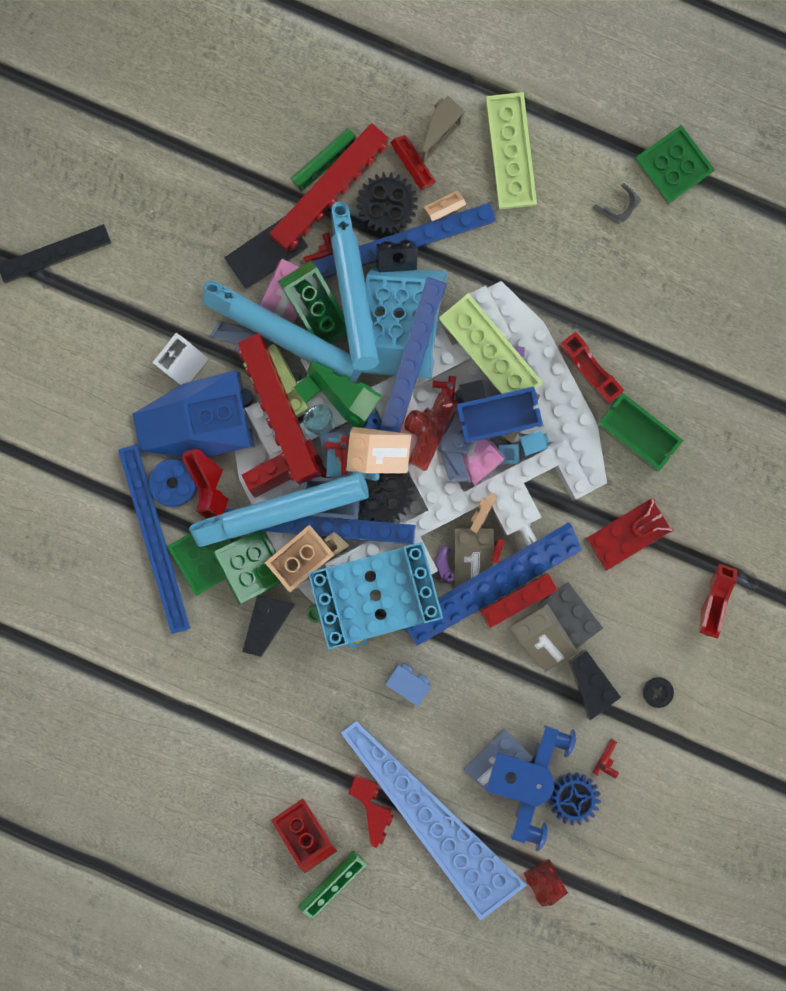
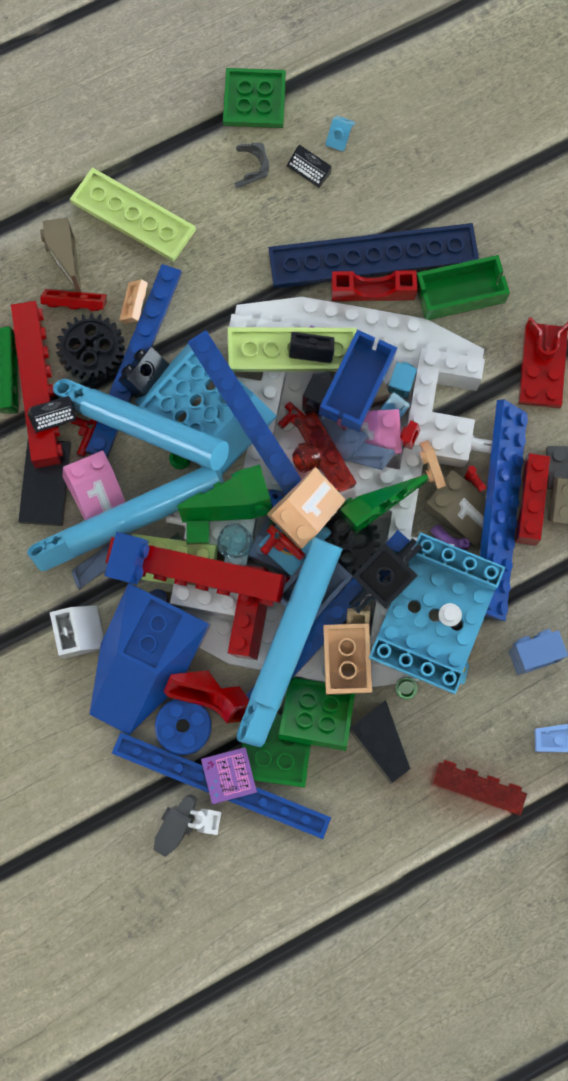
camera: 45 degrees left, 10 degrees down
(104, 530) = (175, 826): none -> dark grey hinge
(122, 548) = (206, 821): none -> white plate
(163, 539) = (229, 775): none -> medium lavender tile
(249, 357) = (127, 558): none -> blue brick
(284, 712) = (478, 789): none -> clear red brick
(312, 220) = (51, 414): none -> slope
(314, 302) = (124, 467): green brick -> none
(381, 605) = (450, 614): none -> white plate
(384, 538) = (385, 560): none -> black brick
(413, 491) = (370, 506): none -> green wedge
(491, 480) = (410, 434): none -> red plate
(501, 362) = (311, 347): none -> black slope
(617, 349) = (372, 254): none -> dark blue plate
(651, 248) = (309, 166): none -> slope
(697, 248) = (339, 133): none -> medium azure bracket

